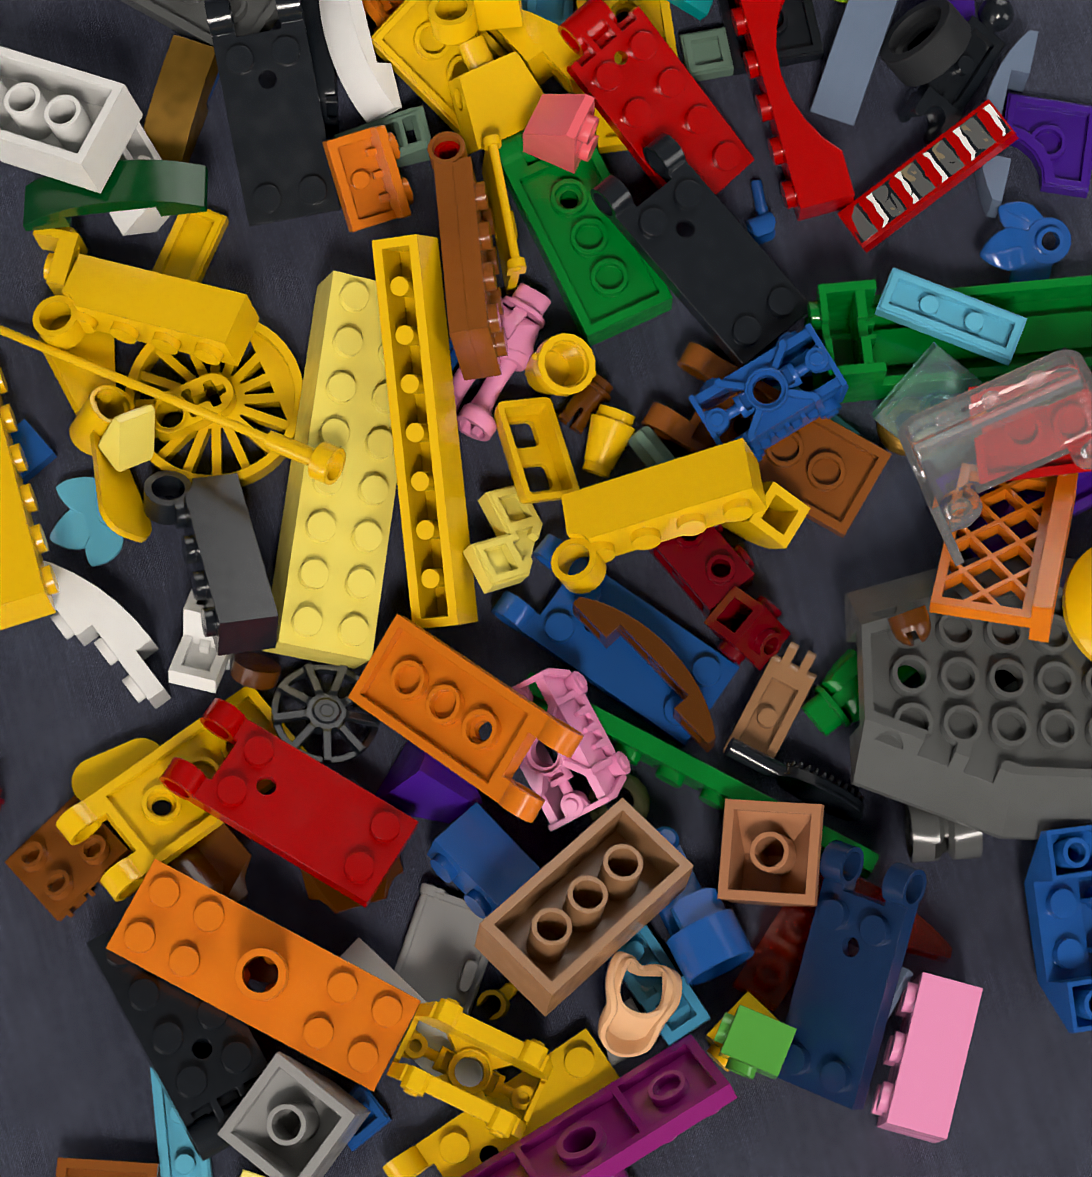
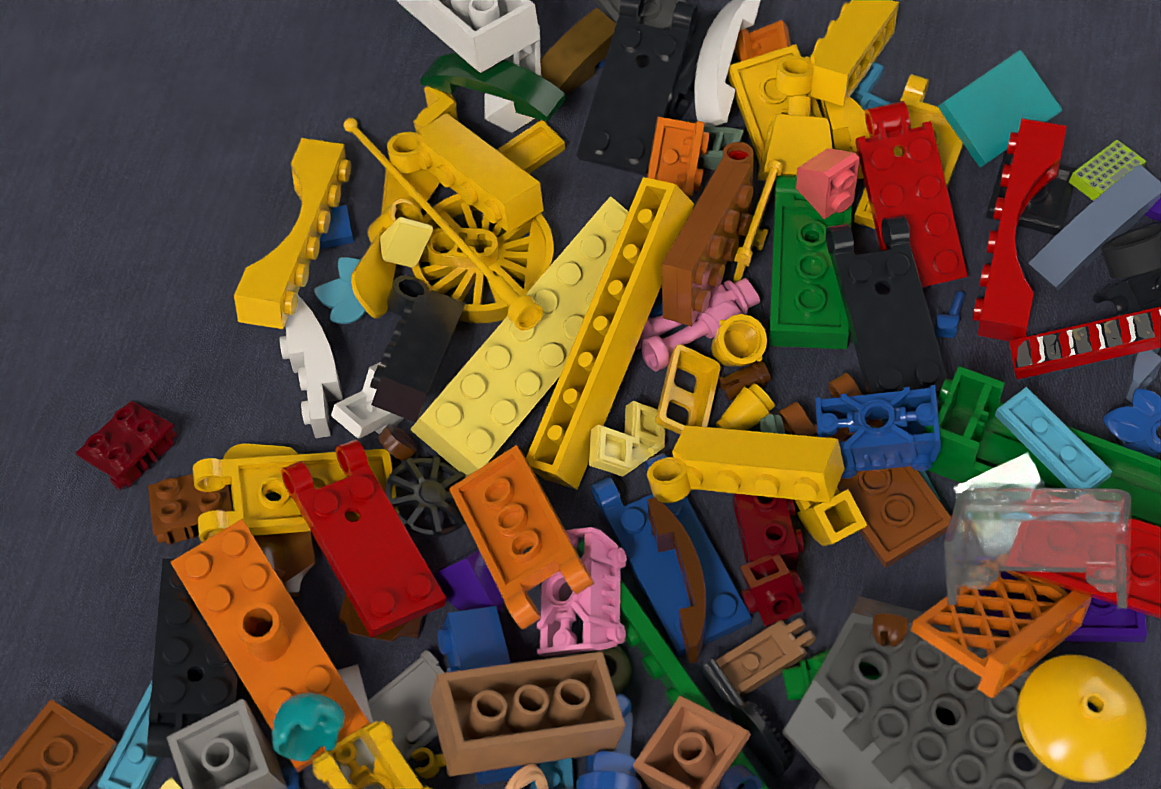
camera: 30 degrees right, 15 degrees down
(365, 1046) = (306, 725): none -> teal hair
(707, 54) = (972, 193): sand green tile -> none

